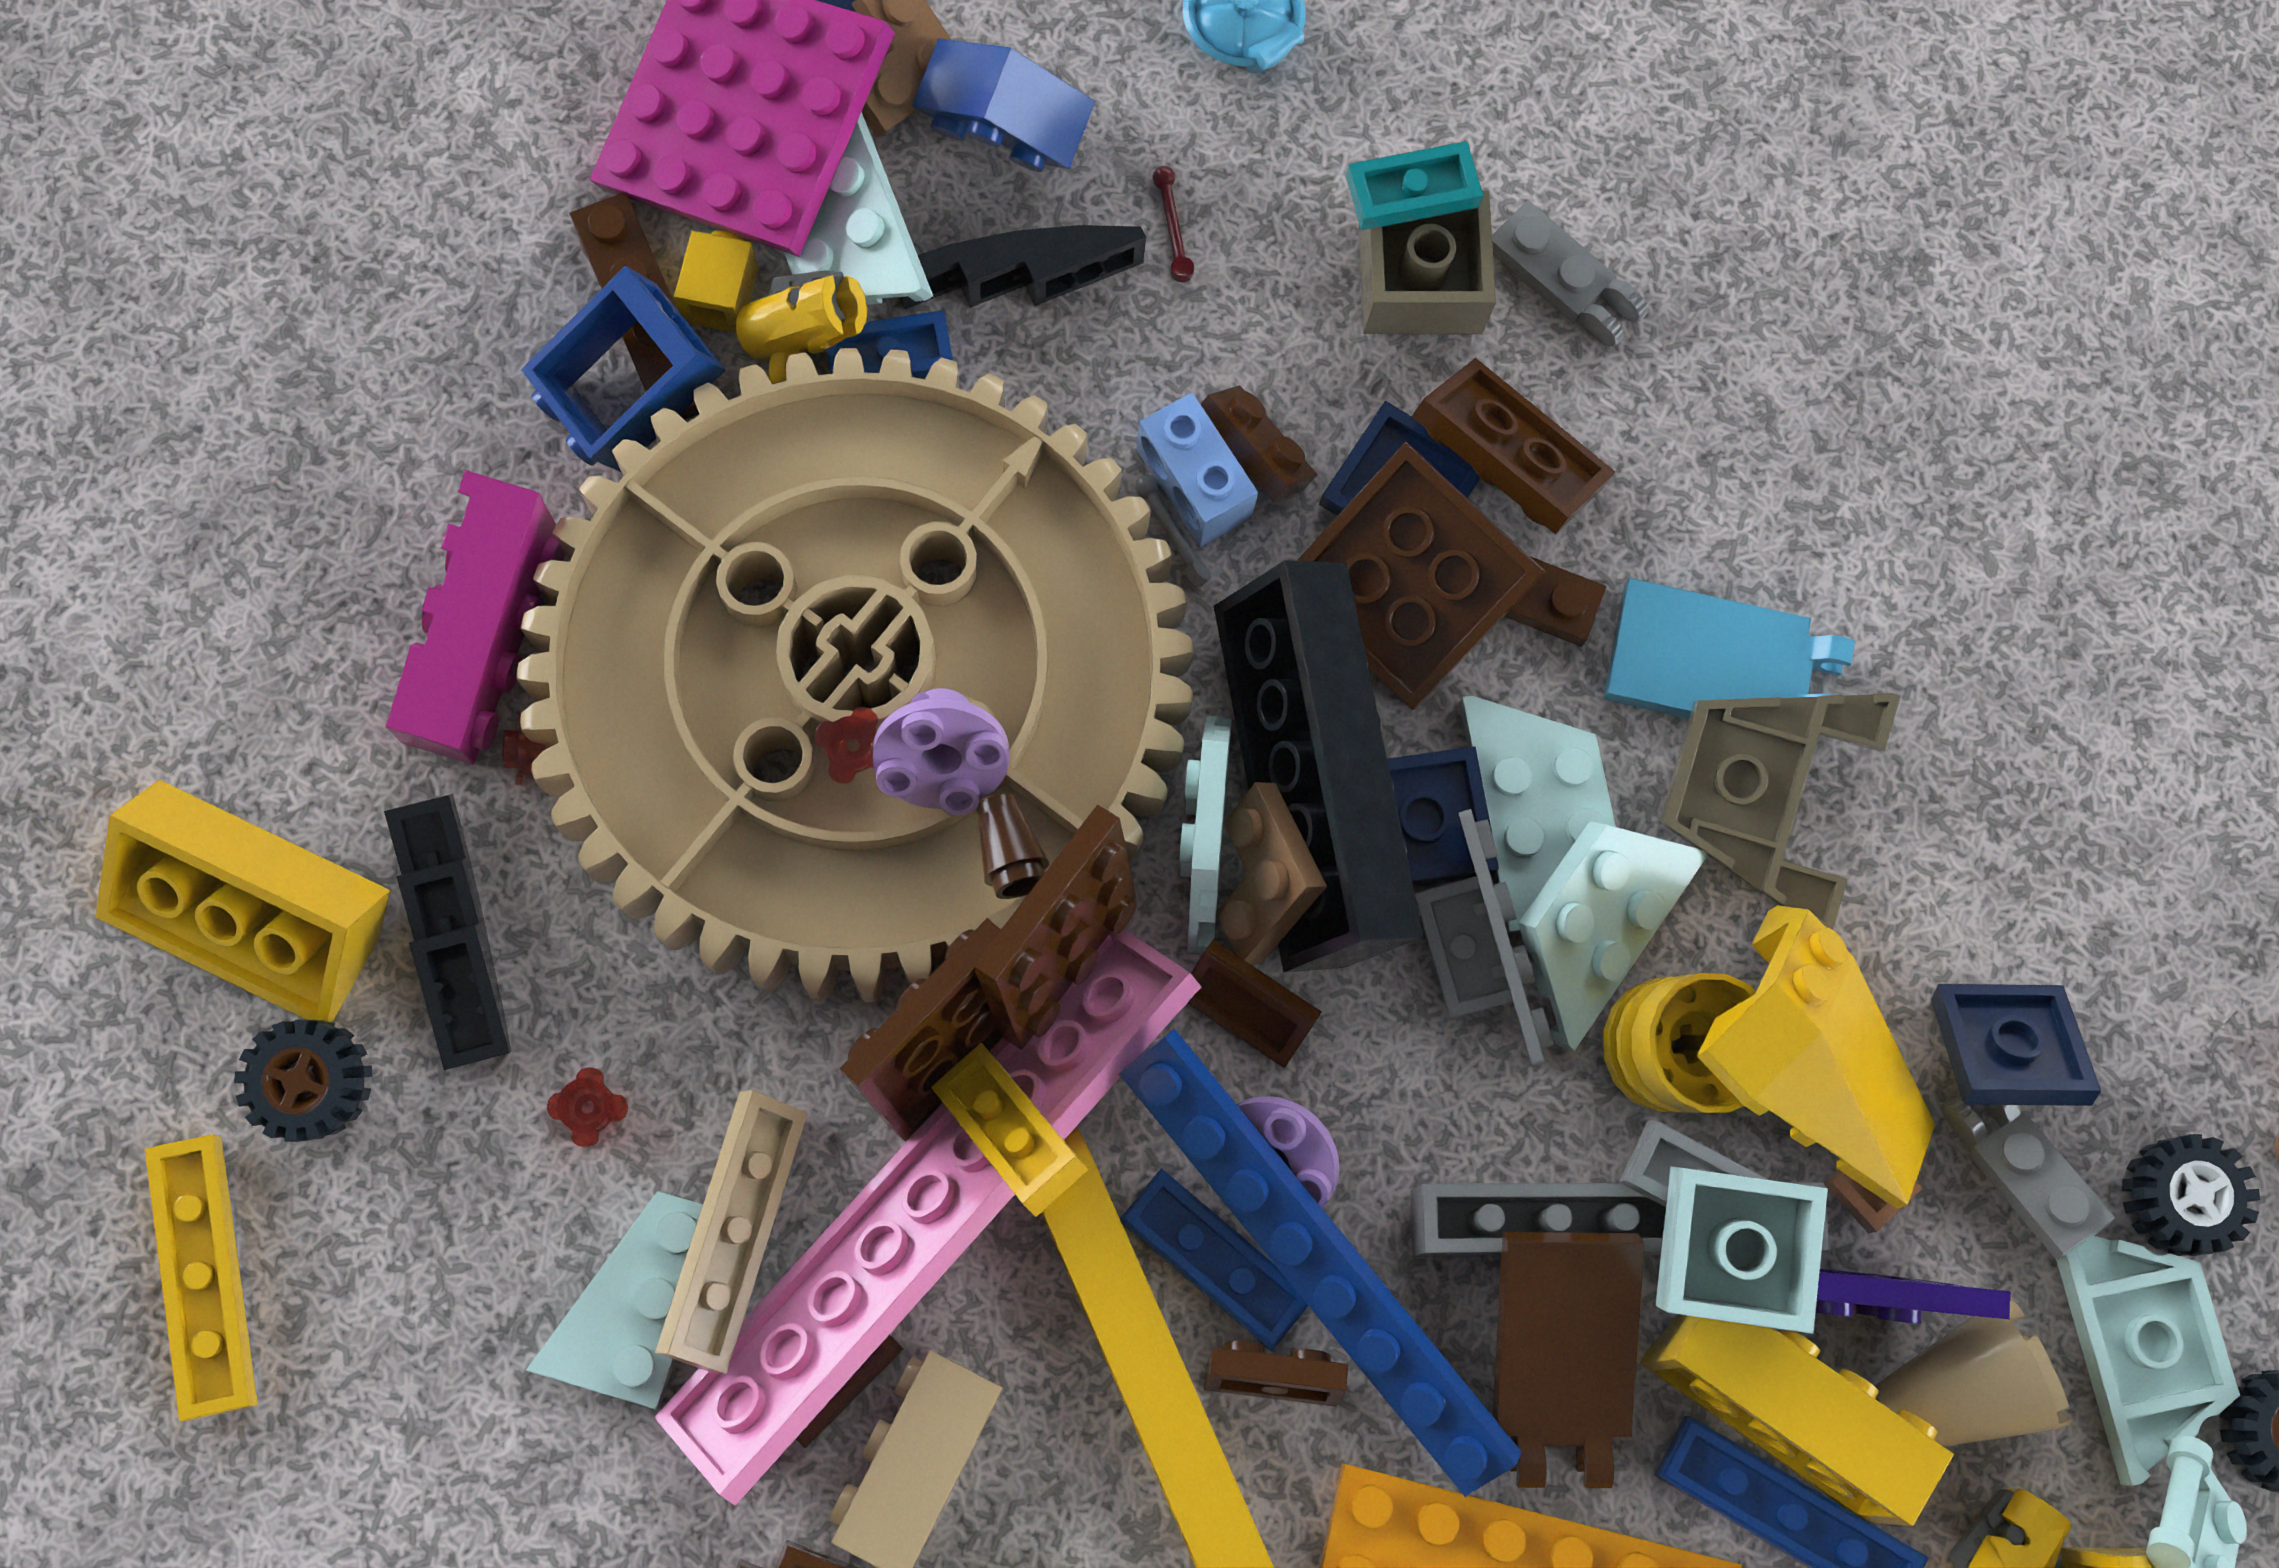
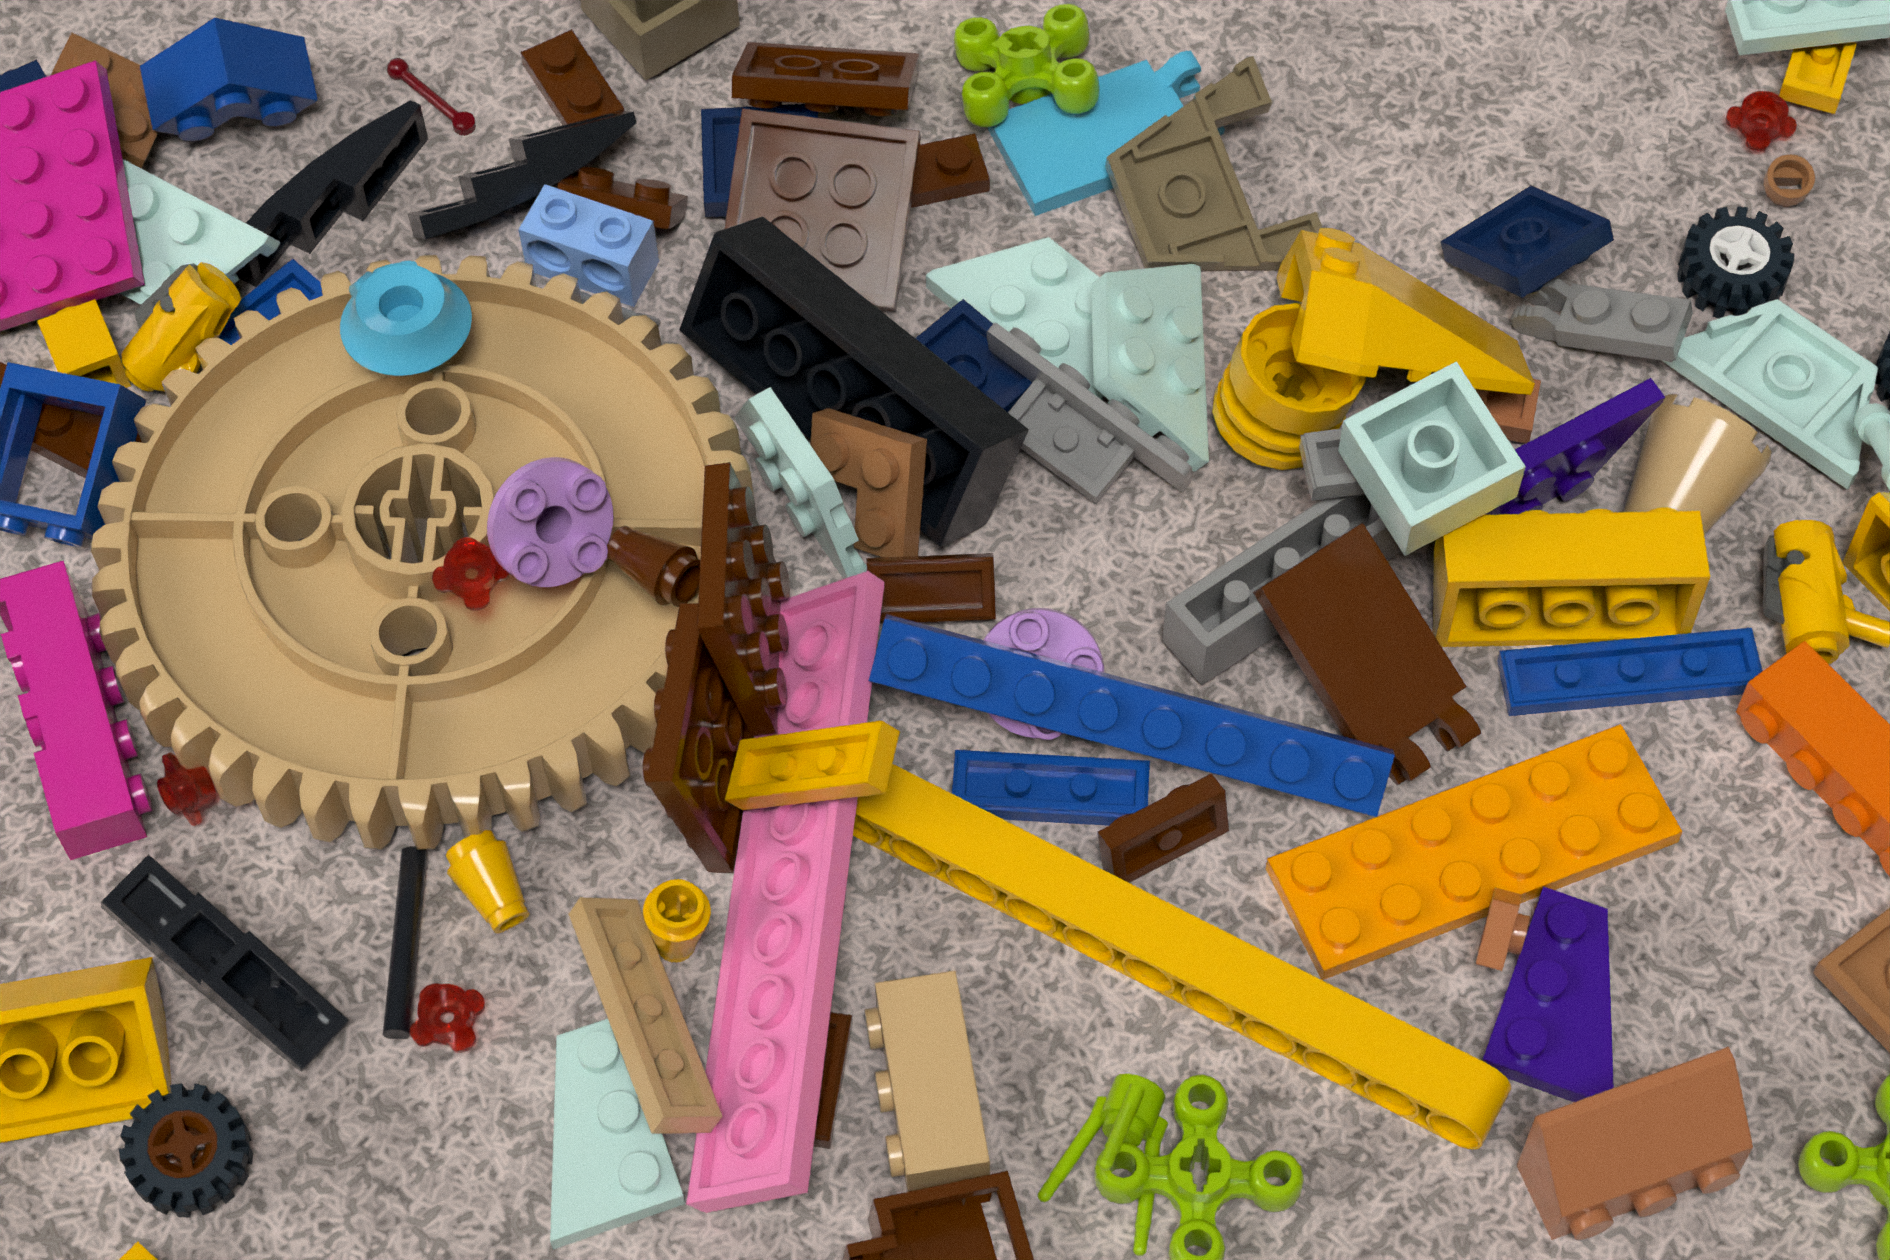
camera: 25 degrees left, 15 degrees down
(599, 1016) = (405, 943): none -> black bar
(701, 1011) = (488, 879): none -> yellow cone
(815, 1146) = (676, 918): none -> yellow cone
(967, 460) = (404, 319): none -> medium azure piece
(1213, 361) = (538, 160): none -> black slope
(1297, 297) = (569, 79): none -> reddish brown plate
(1698, 553) = (1026, 65): none -> lime gear

